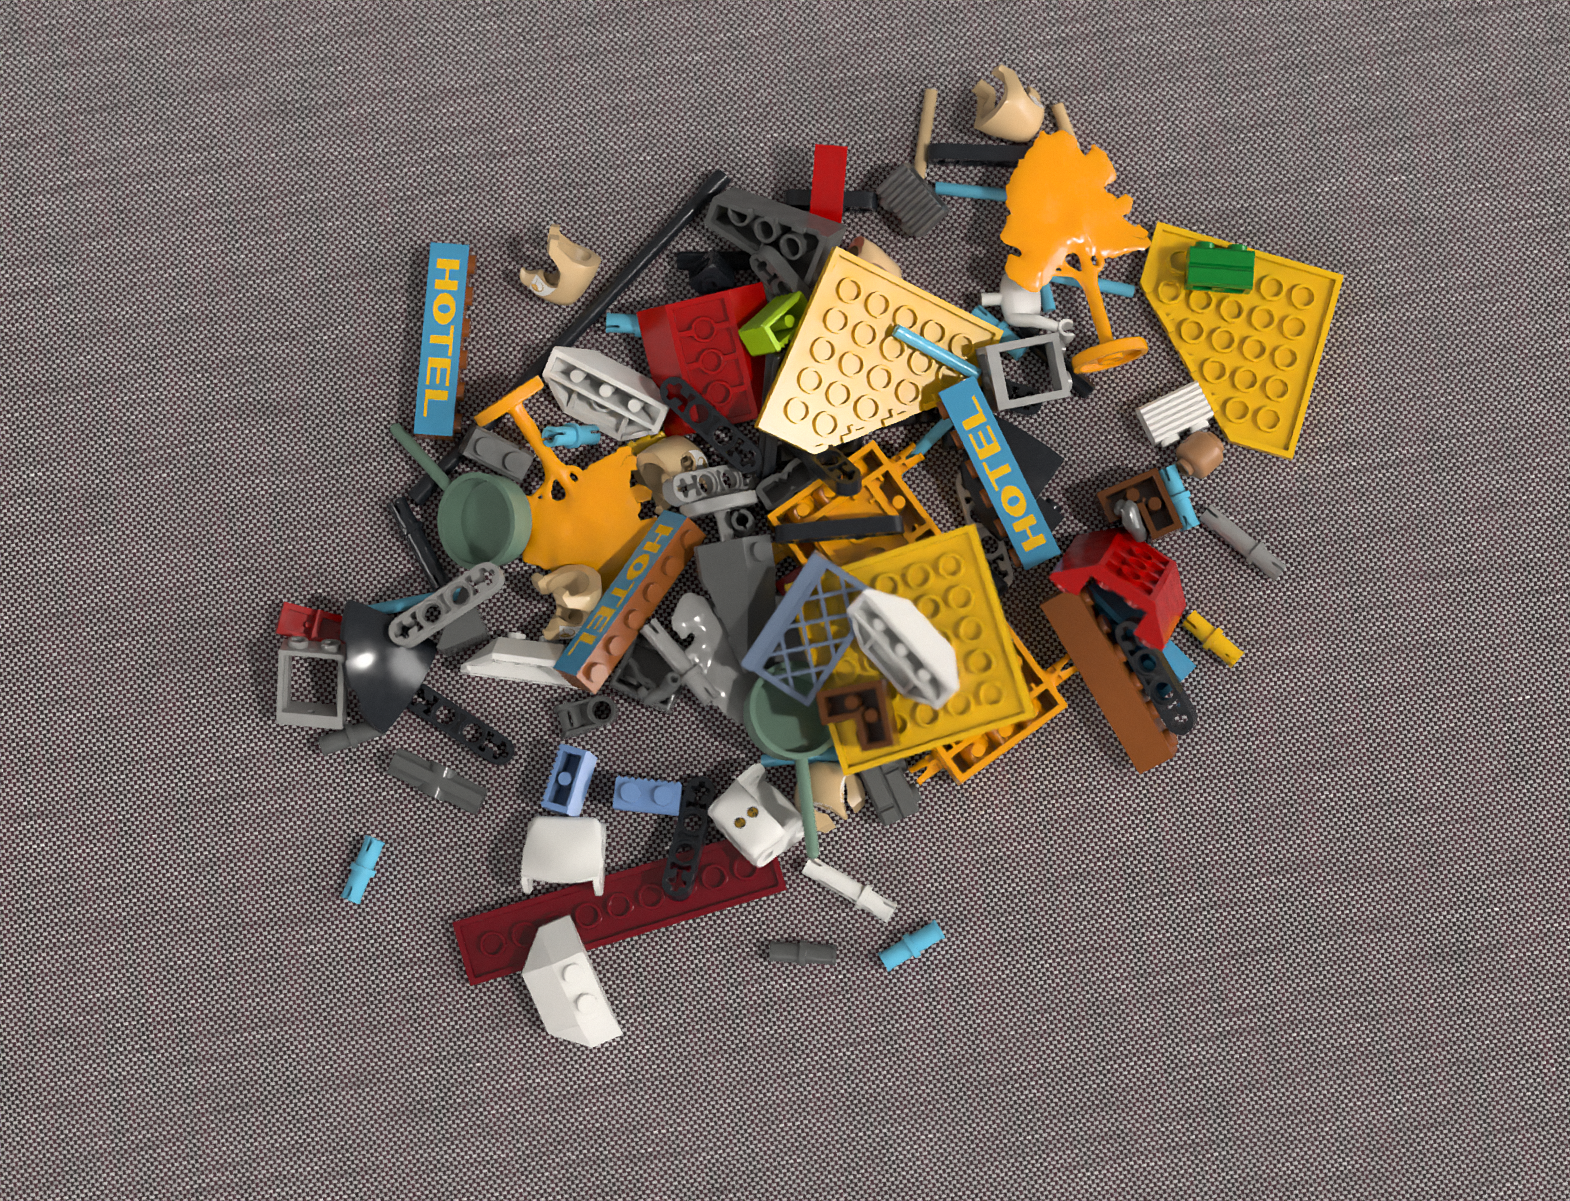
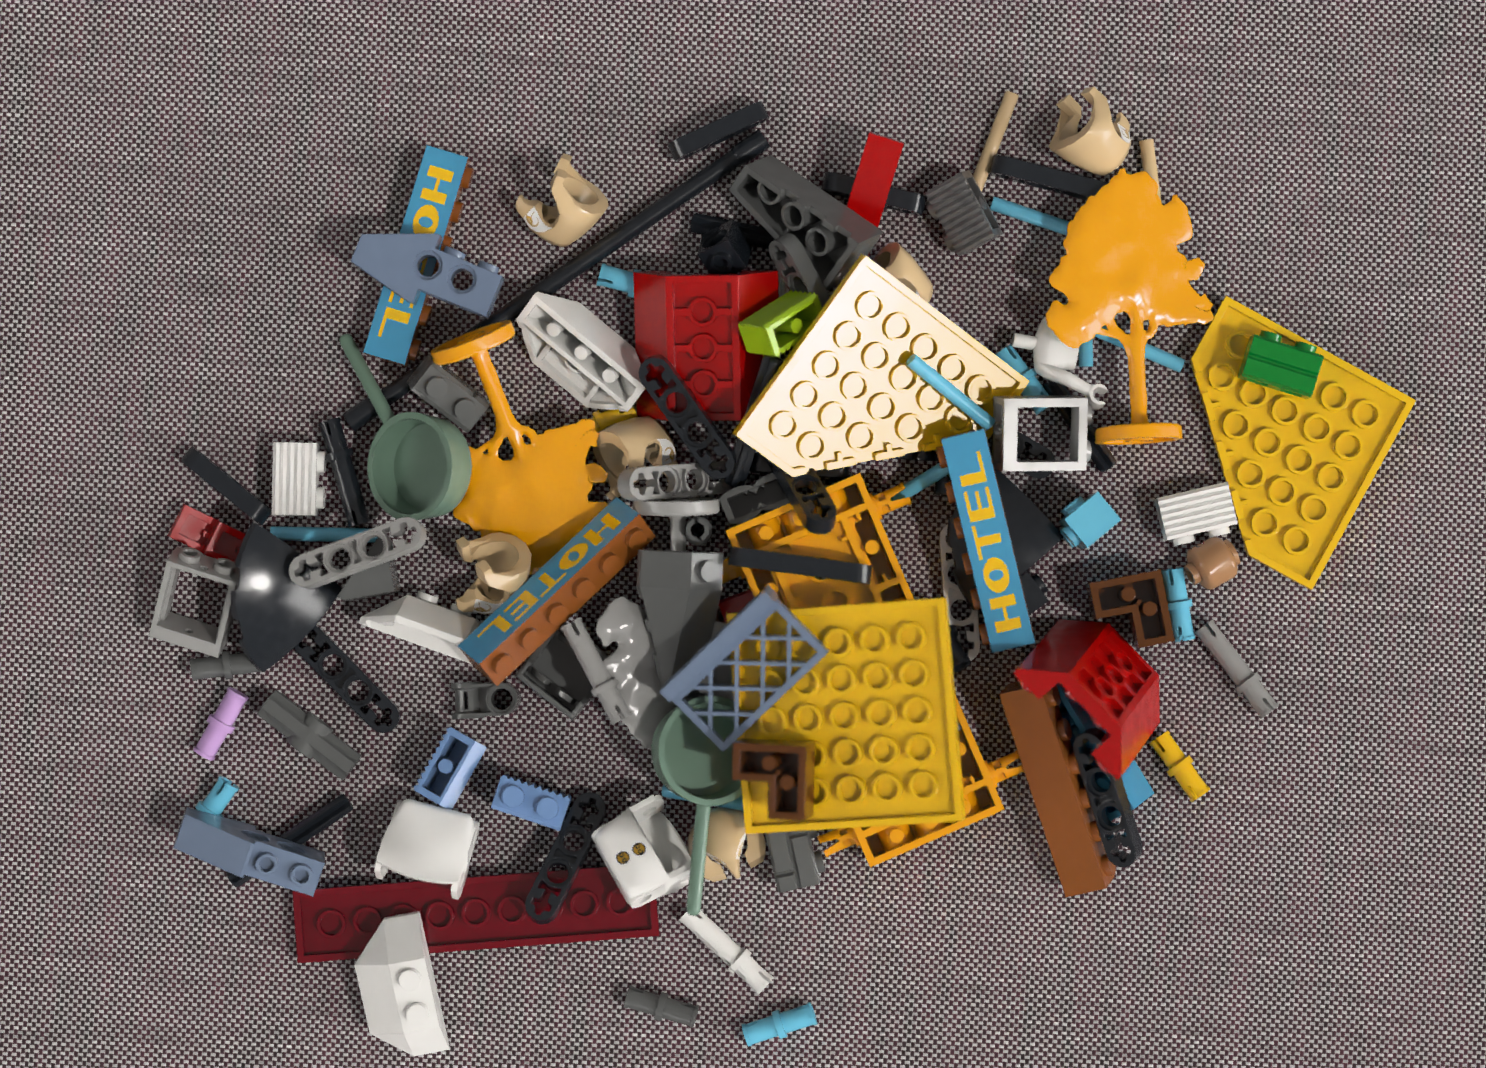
camera: 15 degrees right, 5 degrees up
(316, 577) = (226, 485): none -> black beam
(356, 789) = (220, 723): none -> lavender pin
(378, 558) = (297, 479): none -> white brick
(406, 893) = (249, 852): none -> sand blue brick
(425, 342) = (396, 263): none -> sand blue brick
(440, 879) = (309, 827): none -> black axle
(571, 435) = (533, 392): medium azure pin -> none
(663, 691) = (573, 697): dark grey arm -> none
(683, 177) = (718, 131): none -> black beam
(905, 647) = (841, 716): white wedge -> none
(1082, 439) = (1087, 520): none -> medium azure brick
(1131, 519) = (1120, 620): dark grey arm -> none

